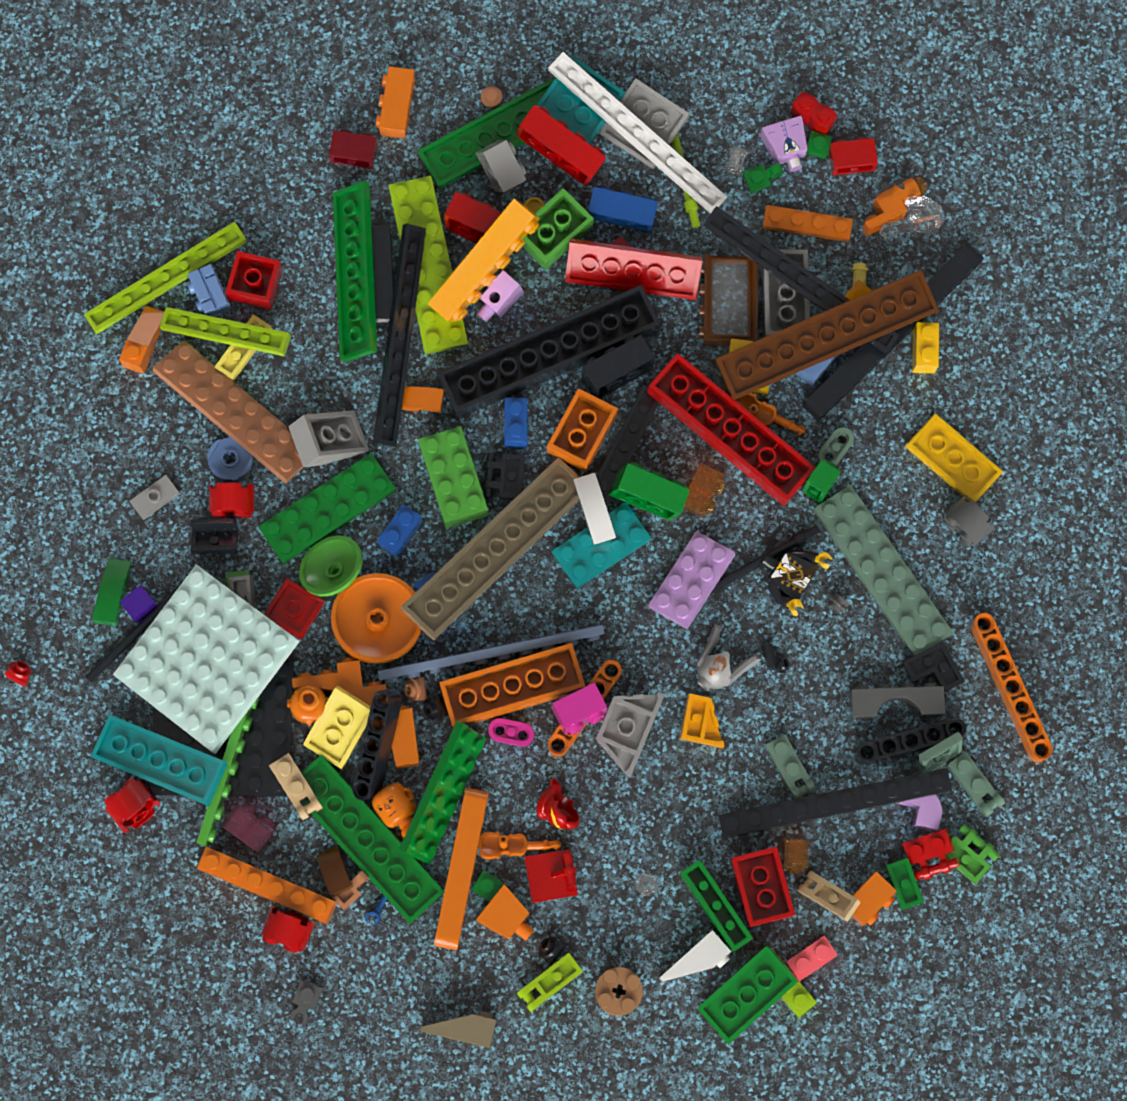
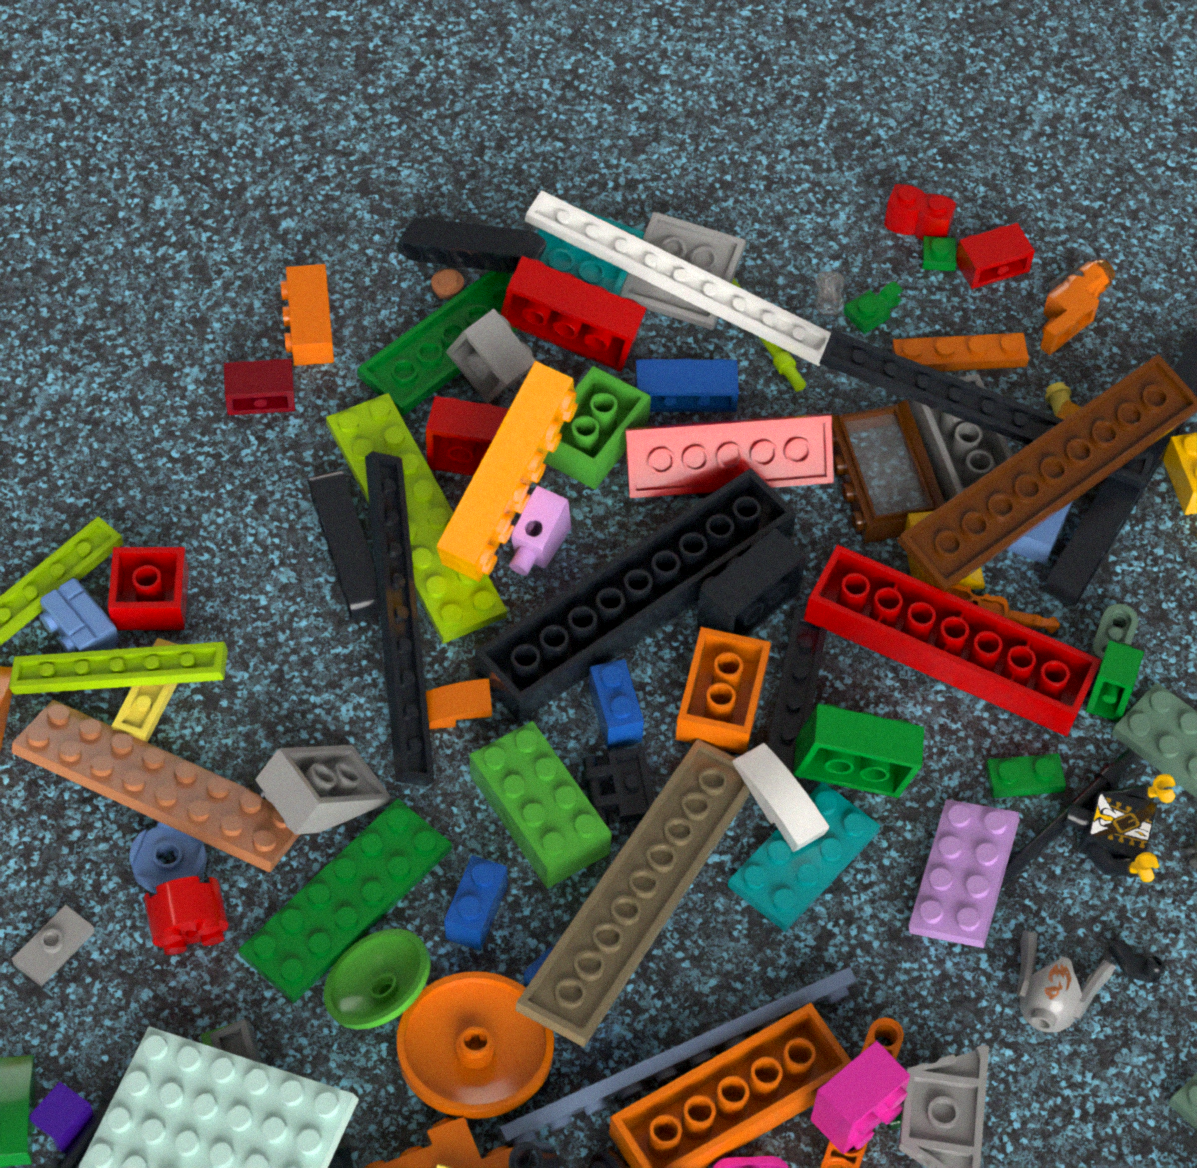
camera: 15 degrees left, 20 degrees down
(214, 536) = (168, 978): black bracket -> none
(294, 609) = (334, 1056): red plate -> none
(354, 272) = (305, 547): green plate -> none
(416, 689) = (570, 1147): nougat plate -> none
(510, 77) = (469, 245): none -> black beam
(700, 722) = (1054, 1087): light orange wing -> none
(703, 490) = (942, 731): clear orange brick -> none
(750, 526) = (1025, 775): none -> green plate
(786, 142) = (892, 255): lavender torso -> none
(923, 217) = (1123, 308): clear piece -> none

